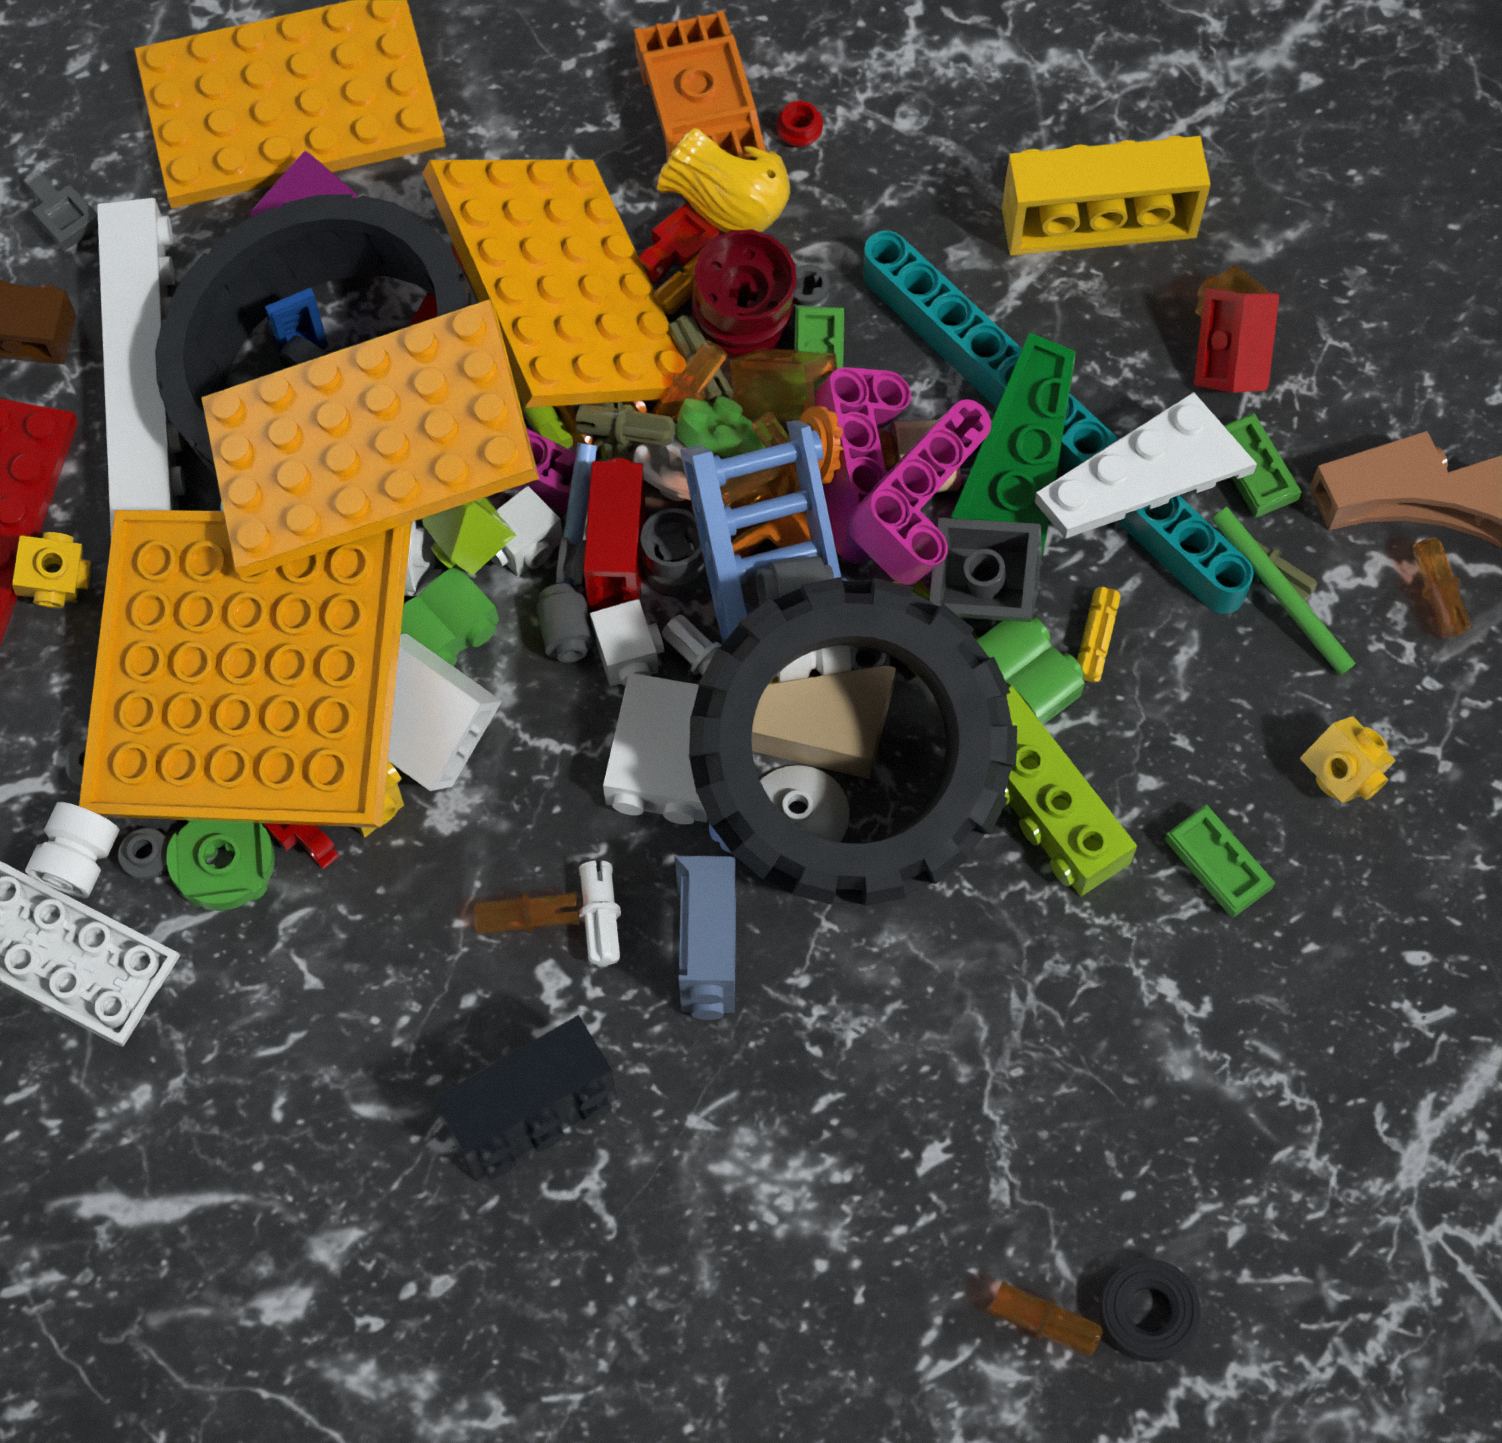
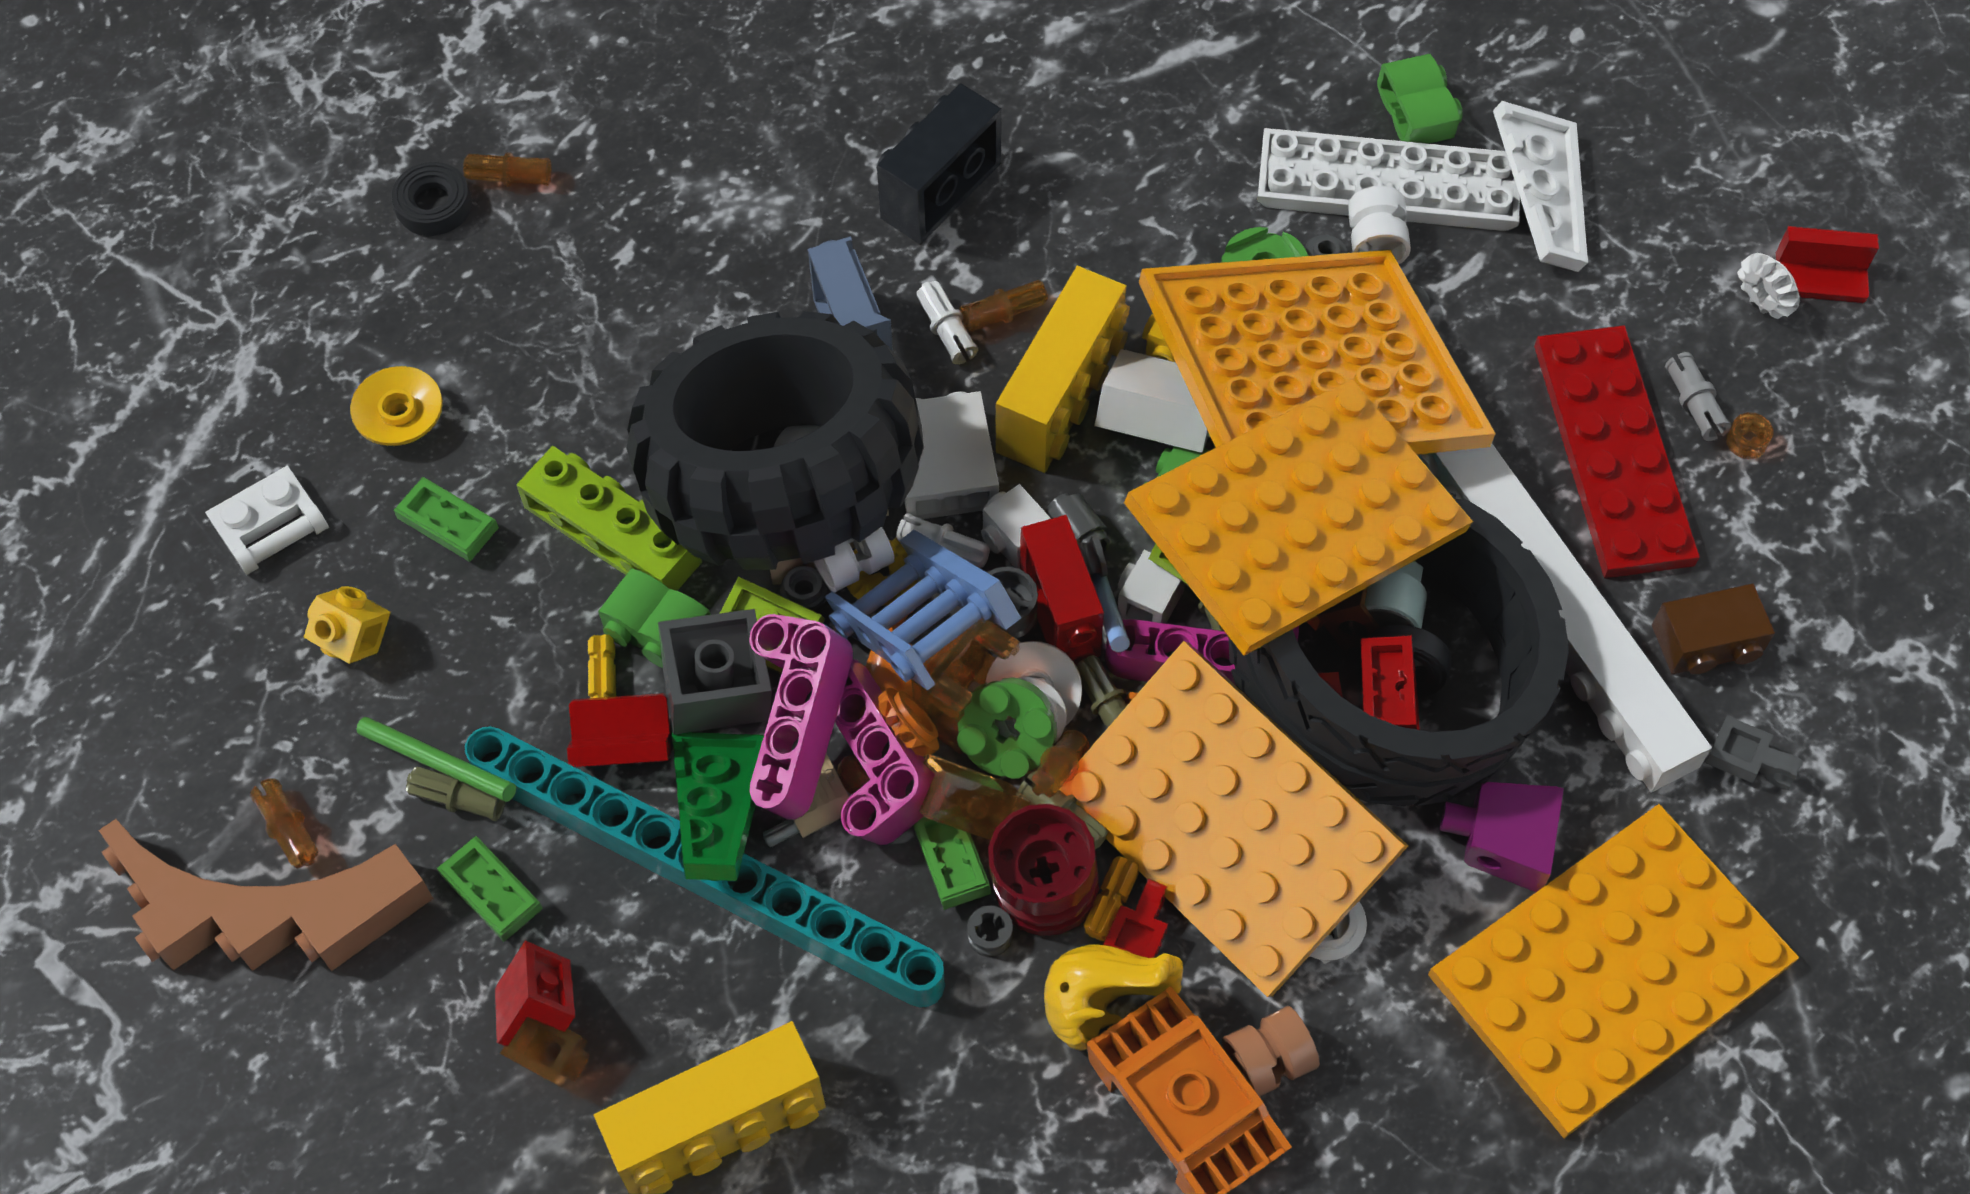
camera: 160 degrees right, 5 degrees down
(38, 556) = (1534, 419): yellow brick -> none
(296, 316) = (1456, 697): blue slope -> none
(378, 302) = (1390, 680): none -> red window
(505, 780) = (1061, 370): none -> yellow brick
(614, 108) = (1273, 1051): none -> nougat wheel
(625, 424) = (1093, 692): olive axle -> none
(789, 575) = (878, 576): dark grey brick -> none
(799, 114) = (1076, 1105): red plate -> none
(1099, 561) = (619, 730): none -> red panel
(1157, 461) = (580, 820): white wing -> none
(1263, 995) = (391, 392): none -> yellow dish
(1419, 949) = (260, 511): none -> white plate

